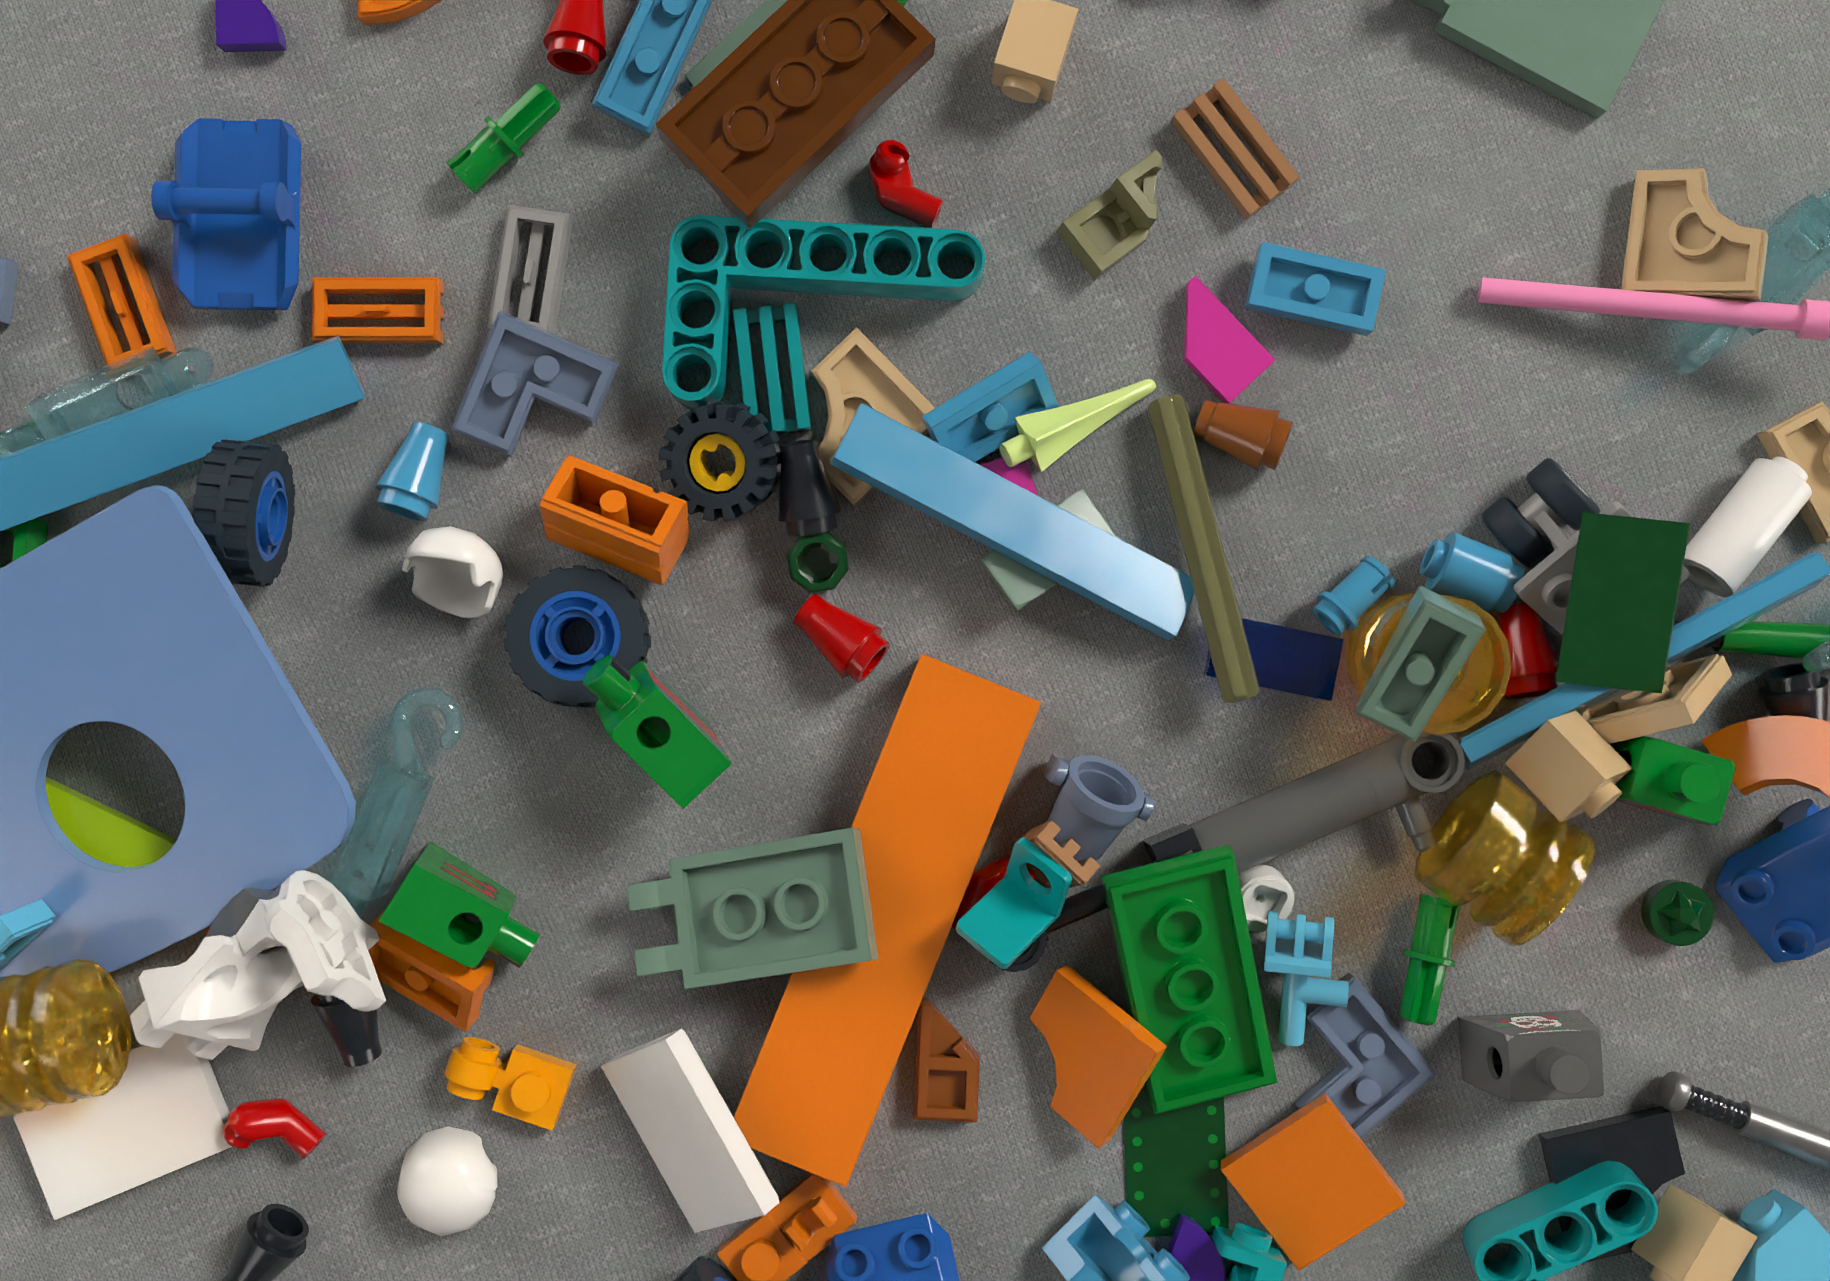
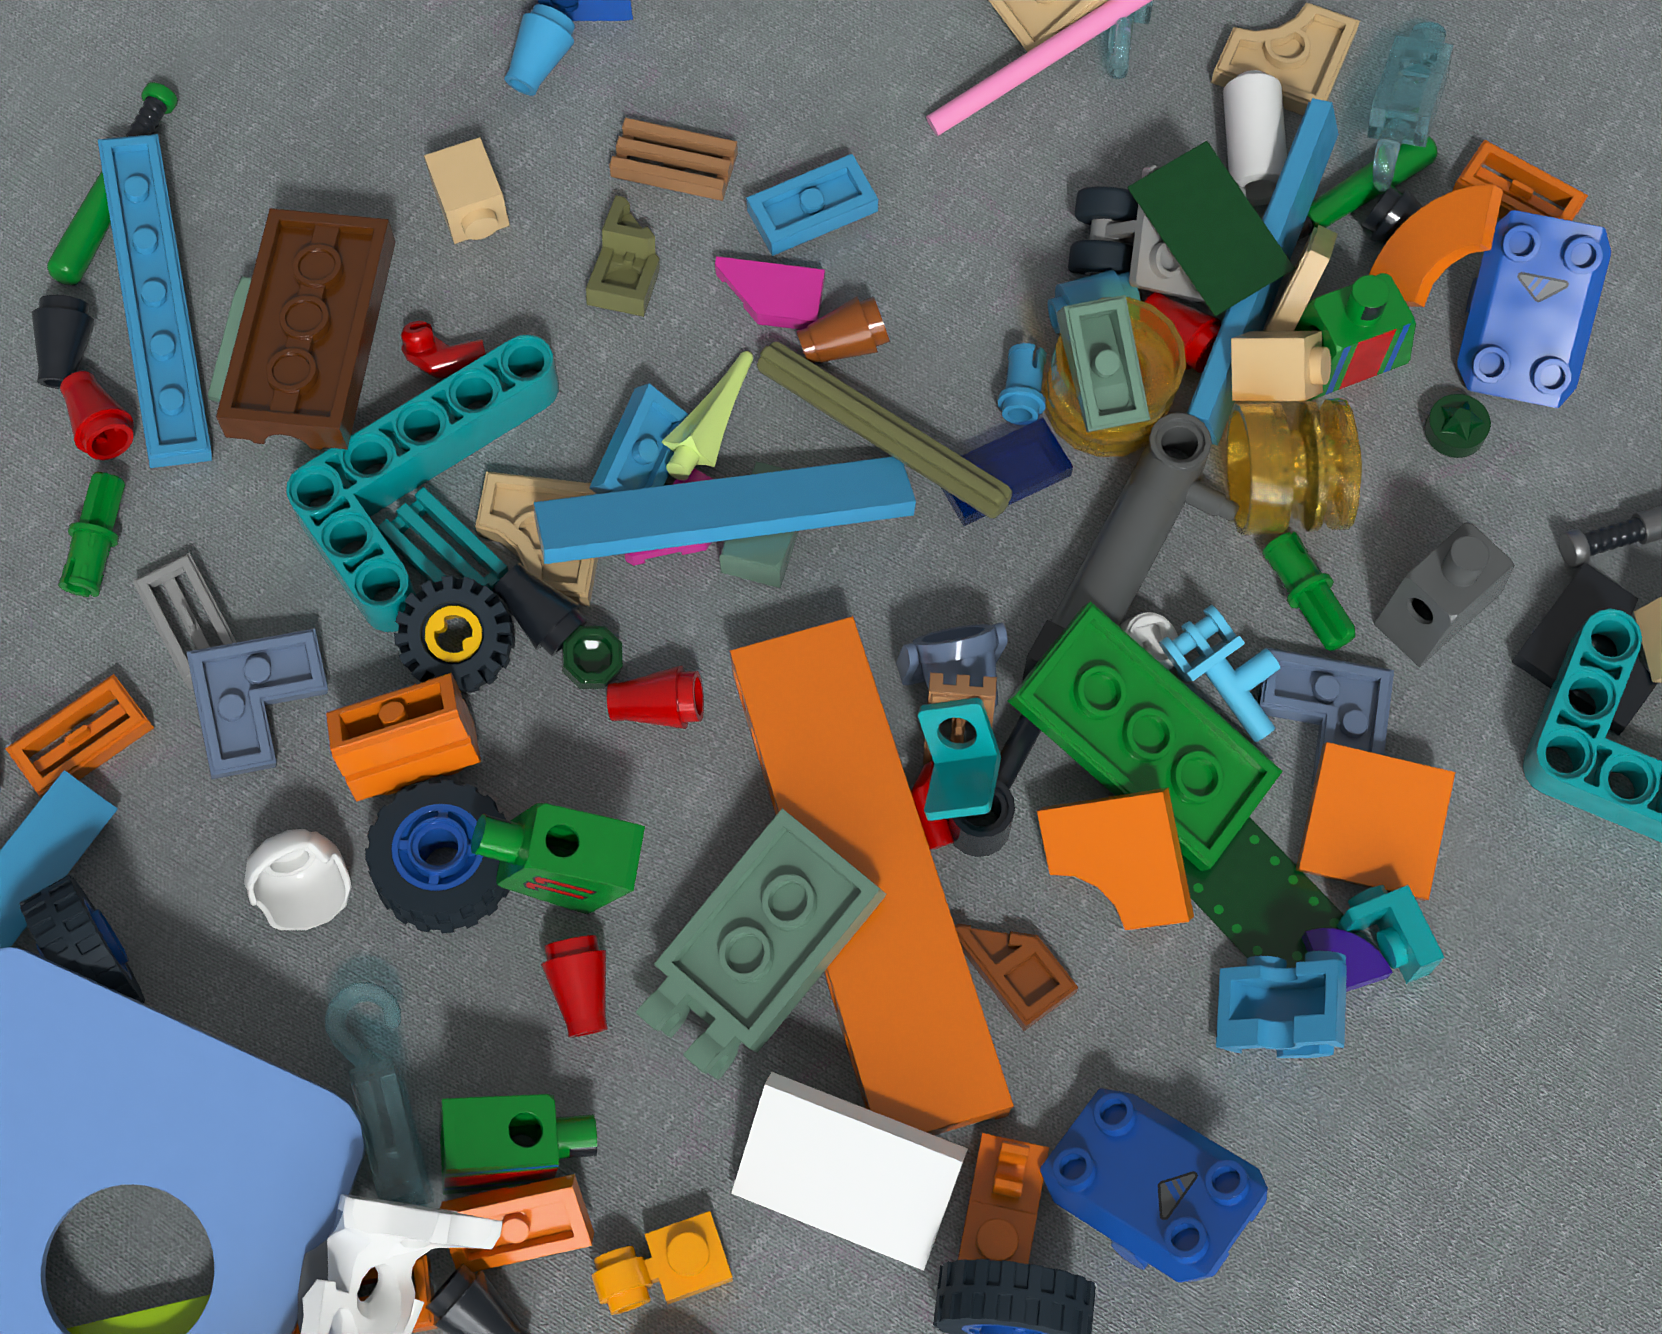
camera: 40 degrees left, 20 degrees down
(415, 474) = (206, 837): dark azure cone -> none
(607, 819) = (578, 982): none -> red cone

